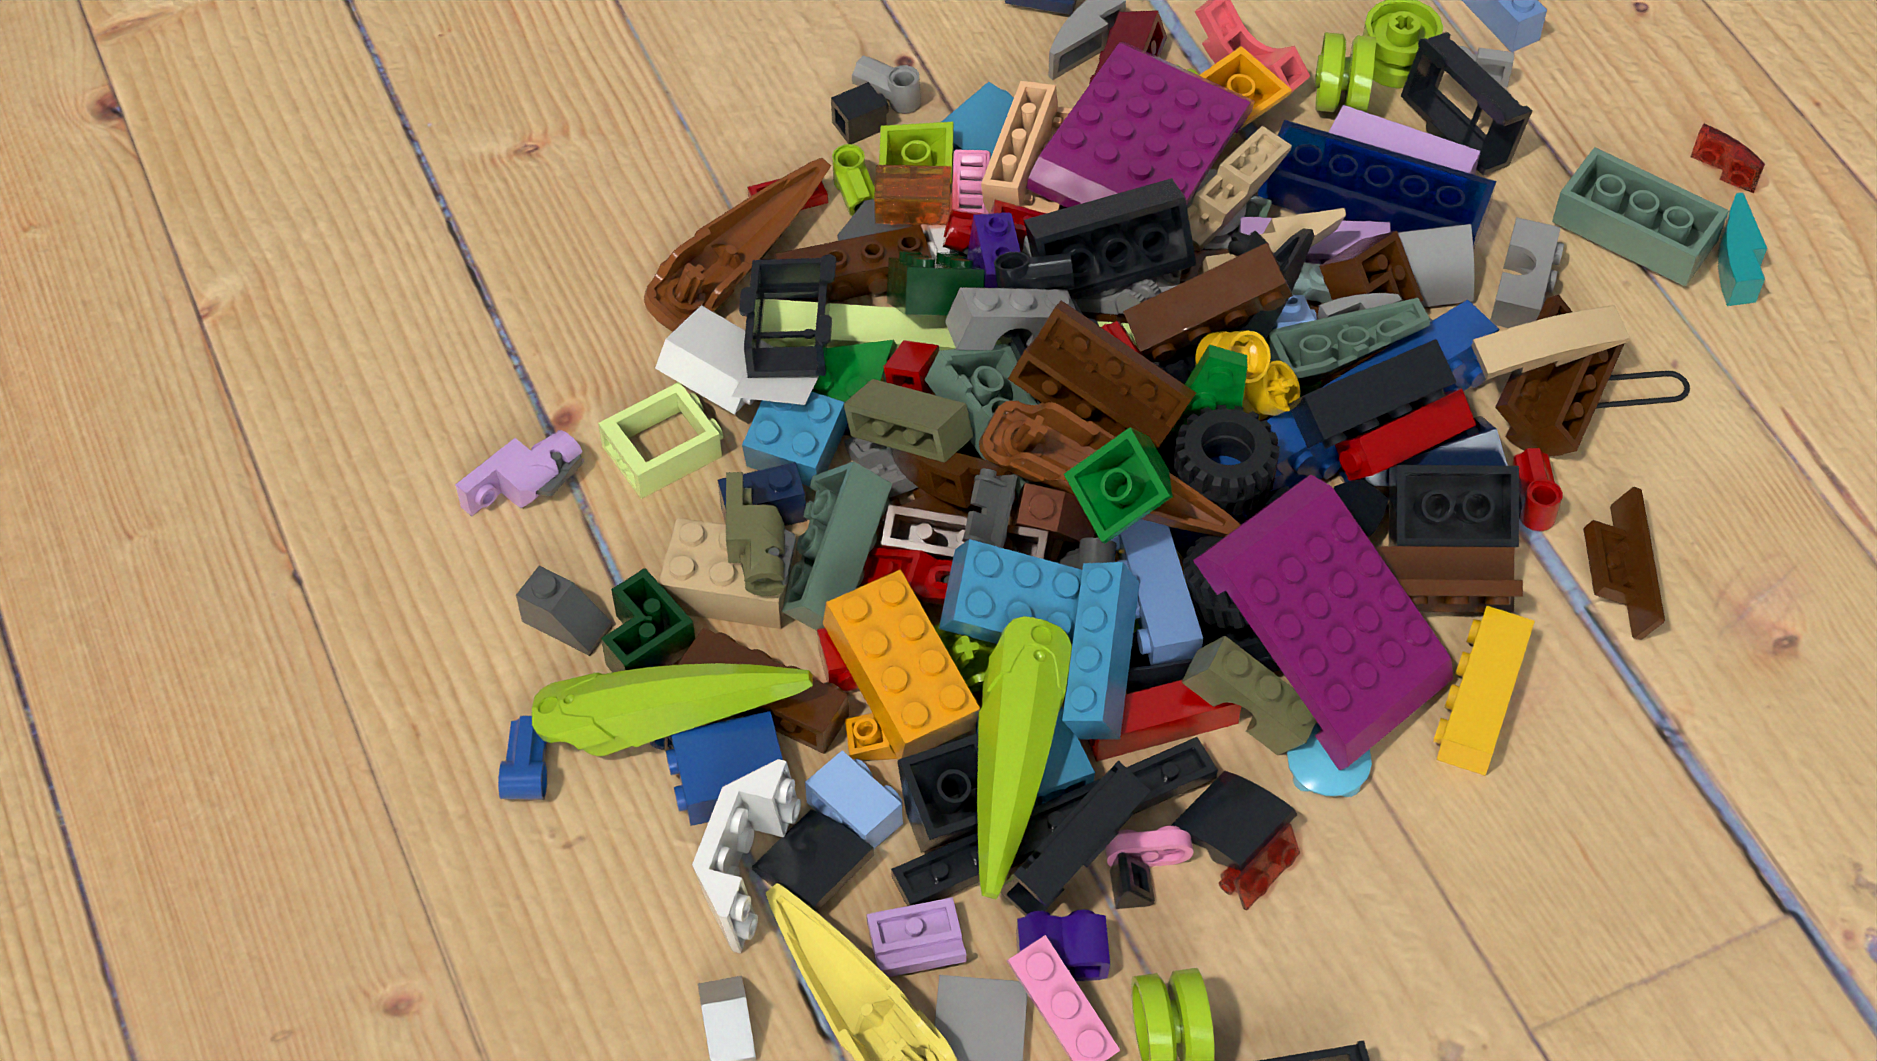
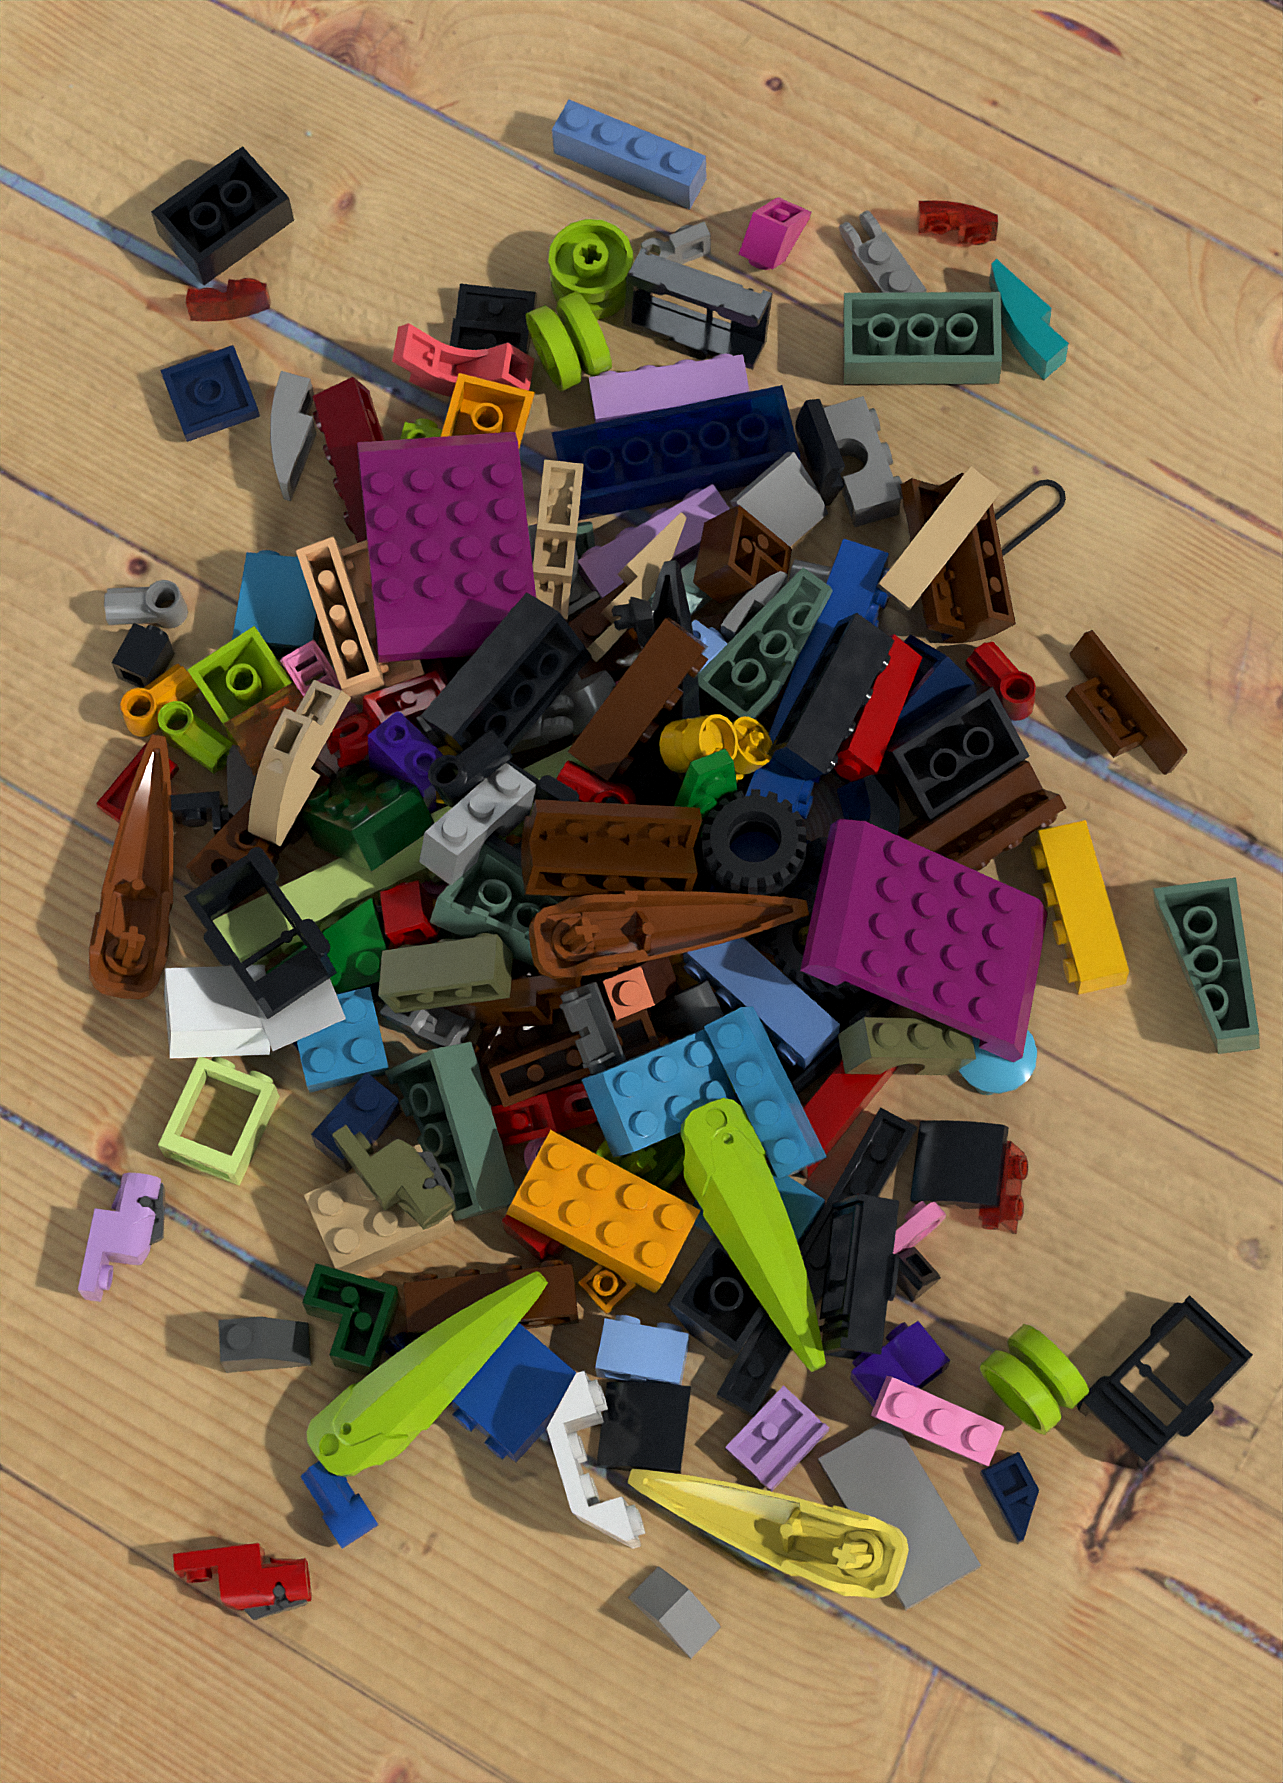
camera: 30 degrees left, 15 degrees up
(410, 770) = (247, 1580): none -> red plate
(816, 225) = (200, 808): none -> black bracket
(830, 135) = (171, 686): none -> light orange piece
(893, 219) = (285, 769): none -> tan slope
(1120, 483) = (697, 938): green slope -> none
(1296, 30) = (492, 317): none -> black slope
(1495, 243) = (820, 450): none -> black slope
(1566, 92) = (773, 233): none -> dark pink slope
(1581, 787) = (1212, 951): none -> sand green wedge
(1647, 151) = (880, 258): none -> light grey hinge

